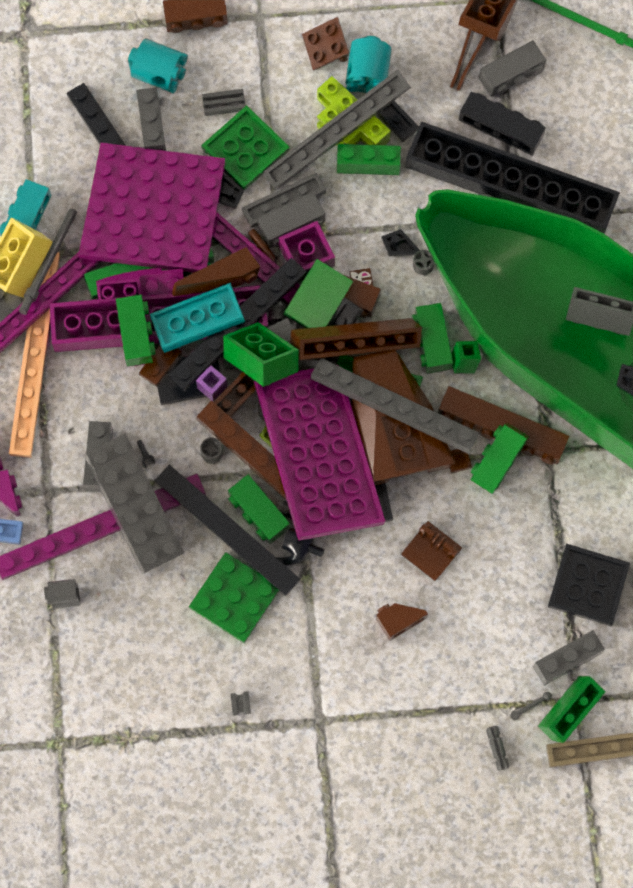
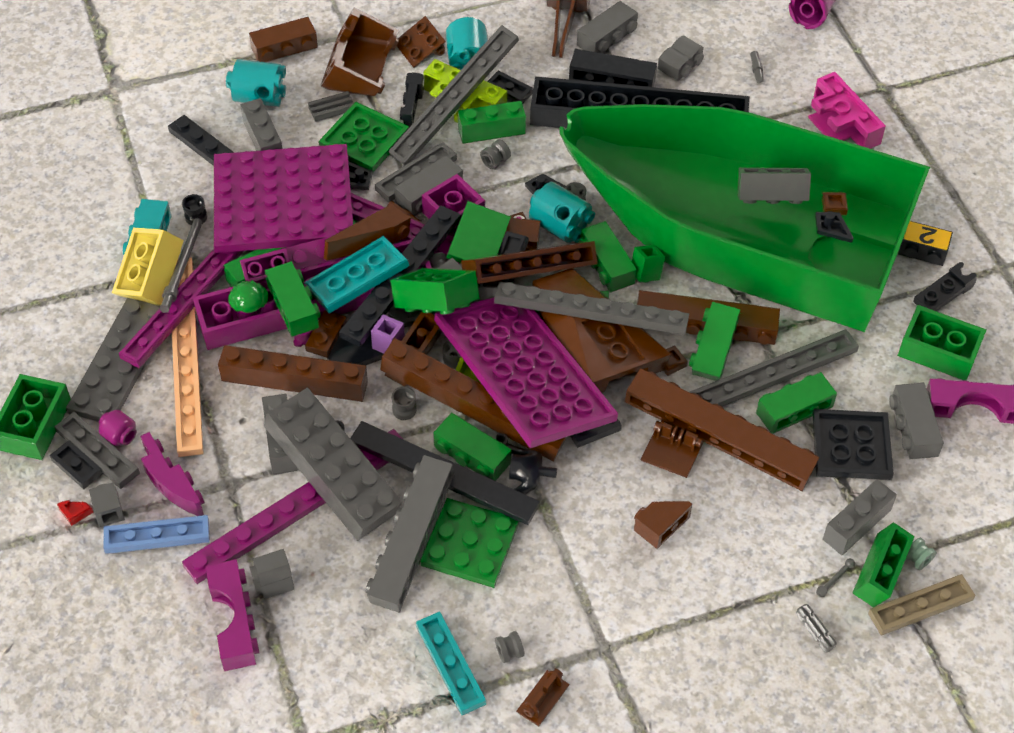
camera: 15 degrees left, 20 degrees down
(23, 646) = (235, 643): none -> magenta arch
(69, 194) = (193, 208): none -> black wheel
(97, 318) = (248, 296): none -> green hair
(123, 397) = (293, 373): none -> reddish brown brick
(184, 583) = (410, 534): none -> dark grey brick
(189, 705) = (450, 663): none -> teal plate
(256, 753) = (543, 697): none -> reddish brown hinge
(262, 50) = (360, 55): none -> reddish brown windscreen
(306, 102) = (413, 92): none -> black plate
(362, 197) = (495, 154): none -> dark grey wheel
(402, 282) = (560, 212): none -> teal cylinder
(477, 546) = (722, 429): none -> reddish brown brick
(541, 496) = (778, 369): none -> dark grey plate
(553, 531) = (795, 402): none -> green brick
(573, 121) = (680, 58): none -> dark grey brick
(608, 704) = (920, 554): none -> sand green wheel

